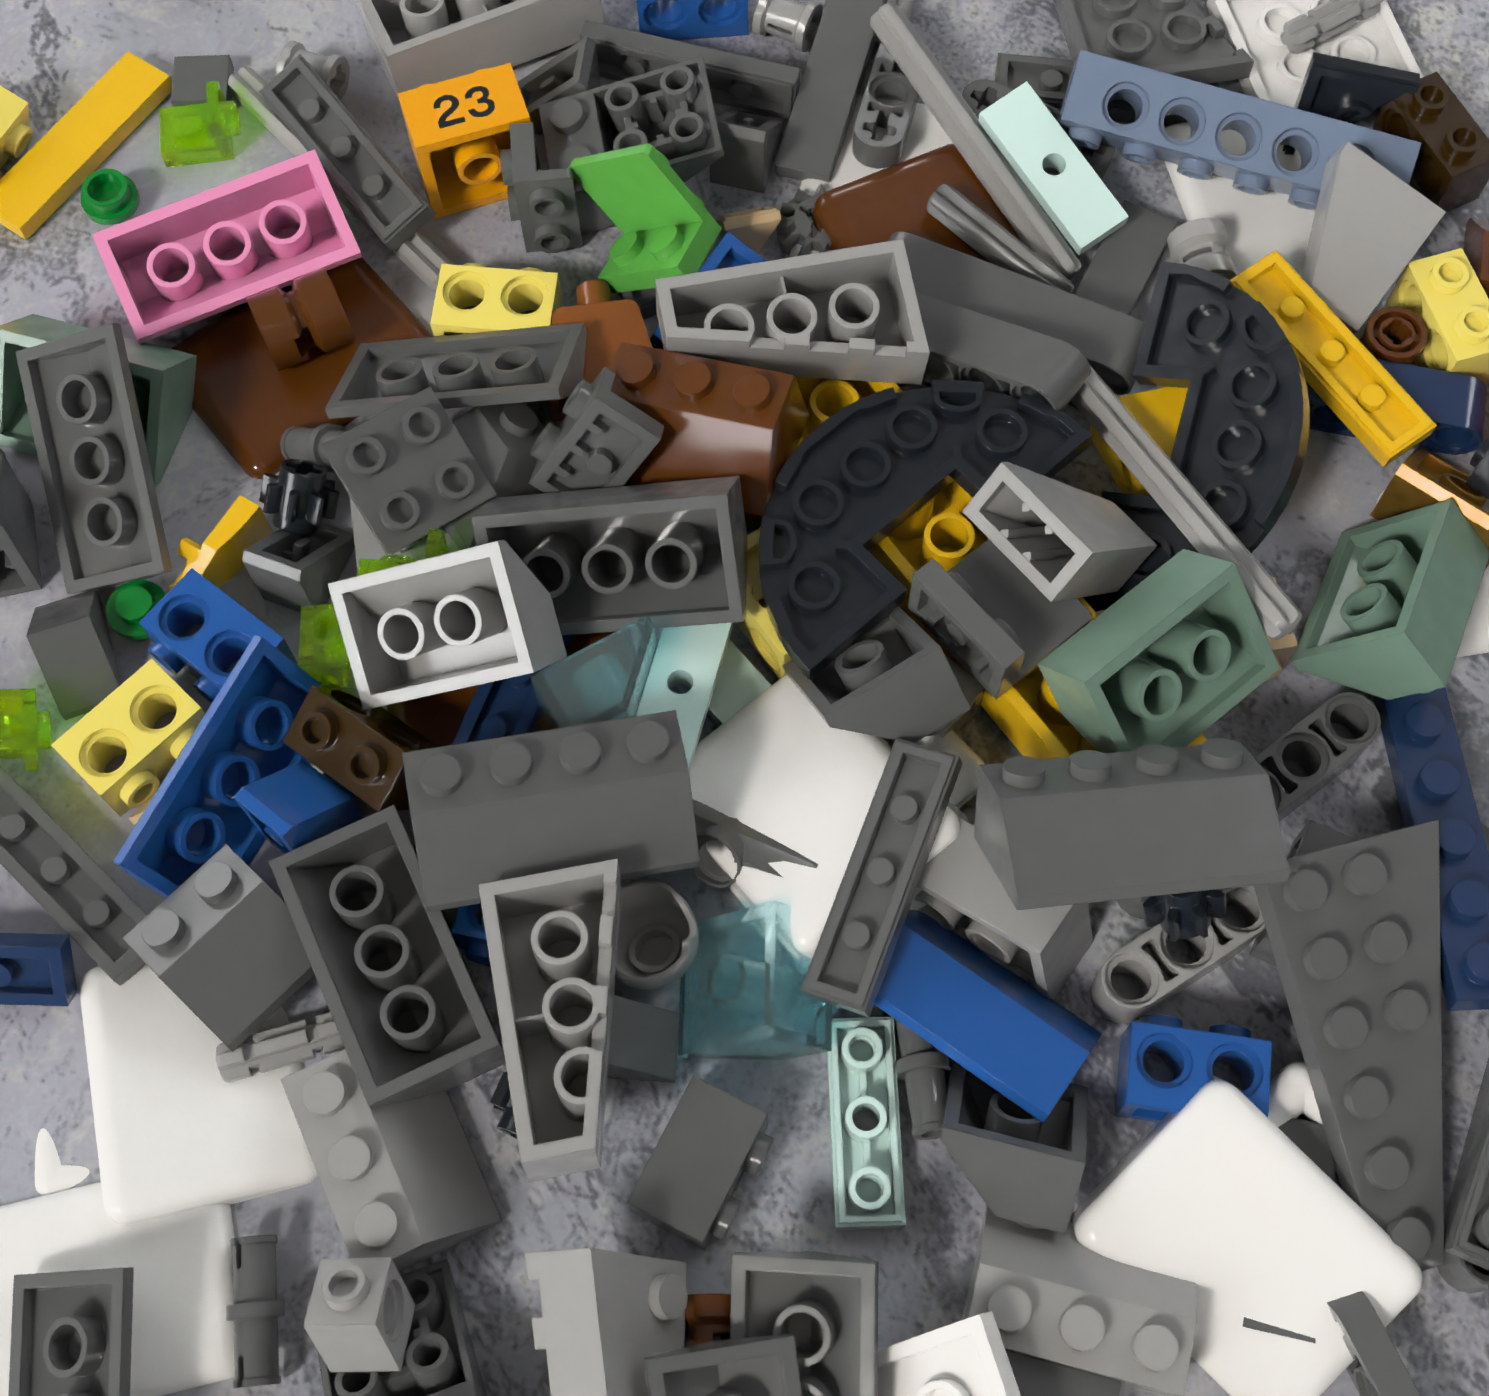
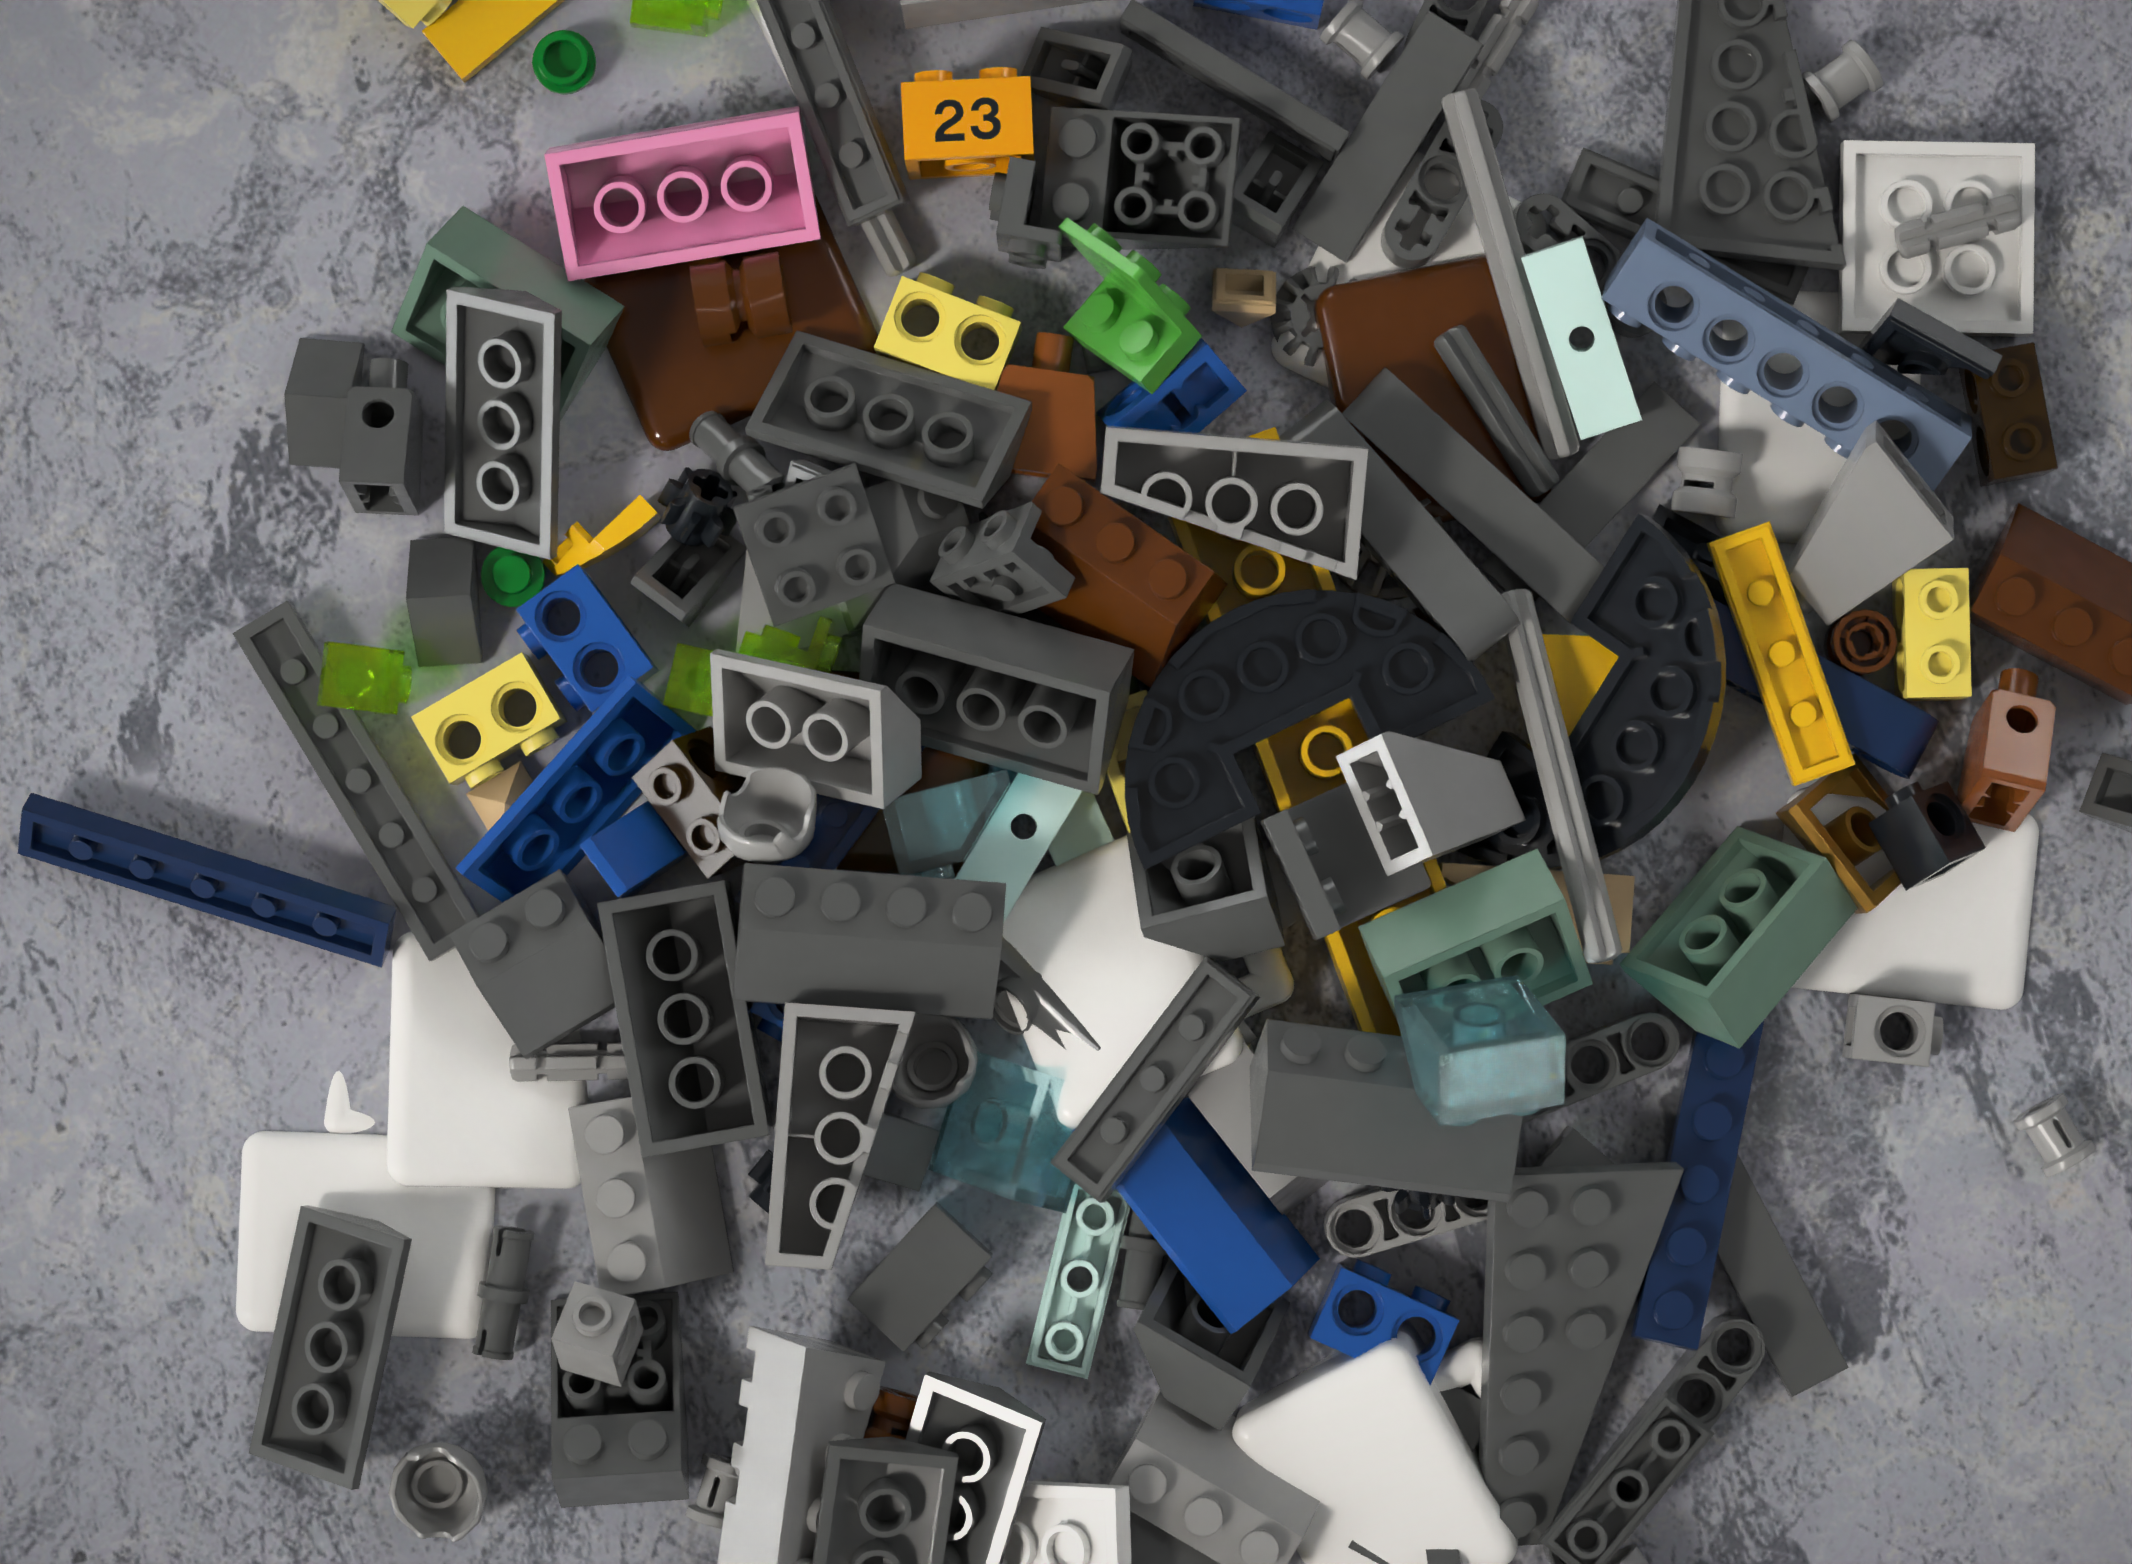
camera: 20 degrees right, 20 degrees up
(422, 714) = (768, 816): none -> light grey hair
(1215, 724) = (1482, 1050): none -> clear light blue slope

